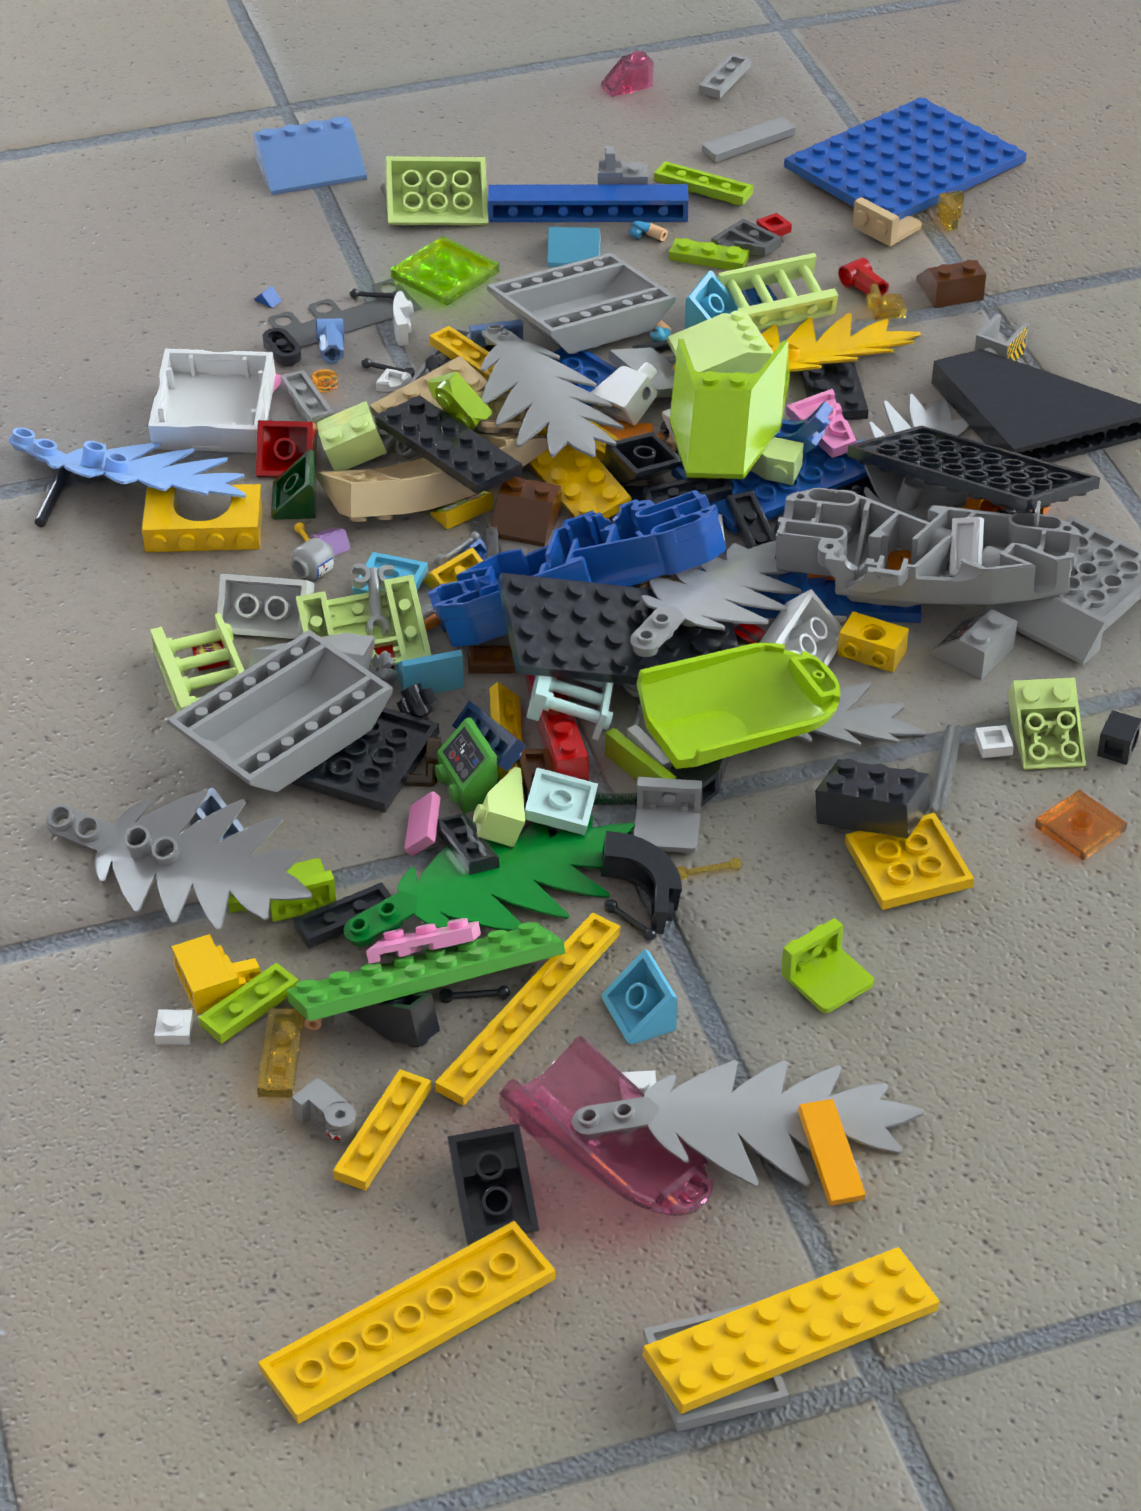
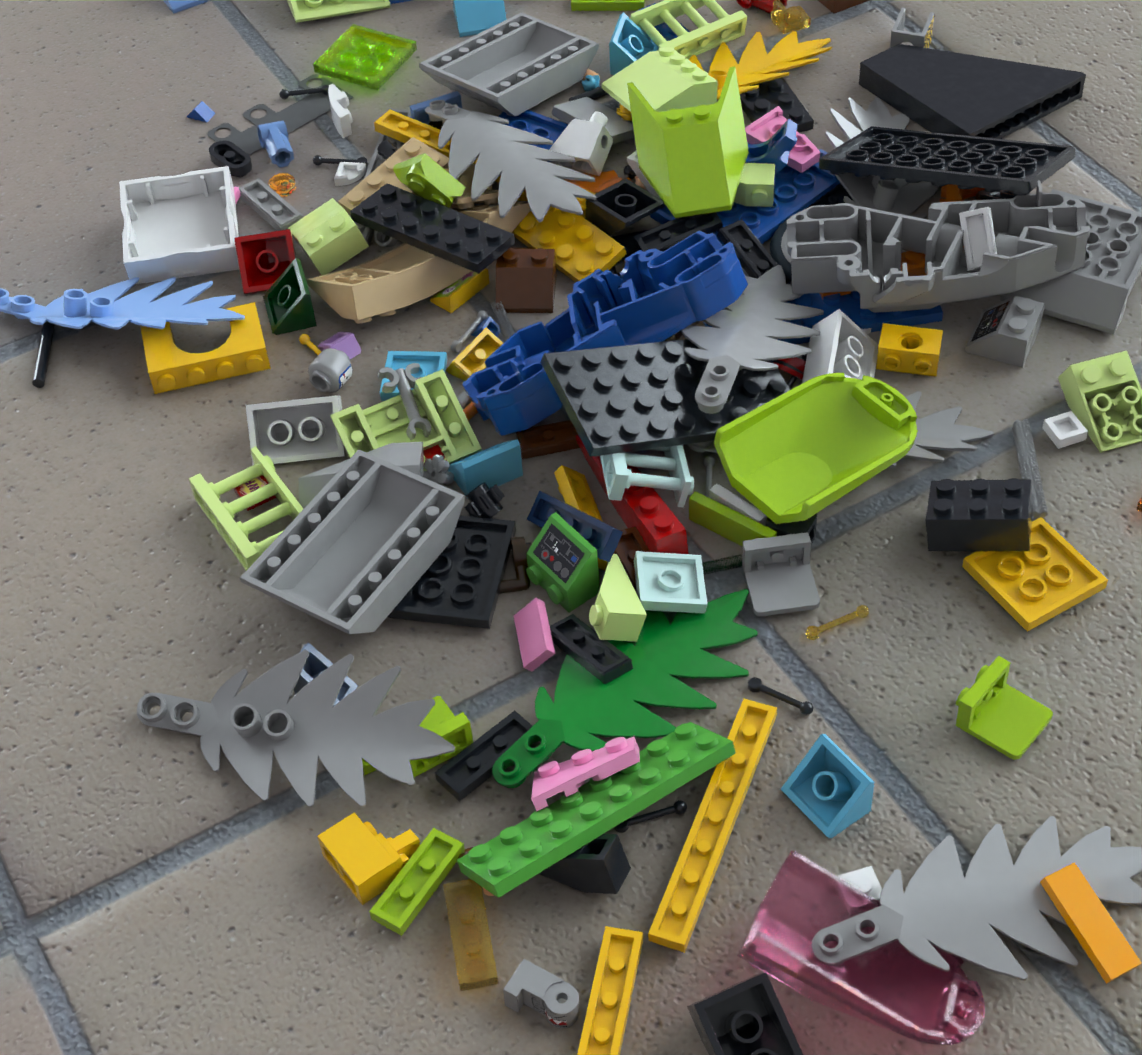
camera: 10 degrees left, 5 degrees up
(174, 1027) = (343, 927): white plate -> none
(648, 867) = (783, 636): black arch -> none

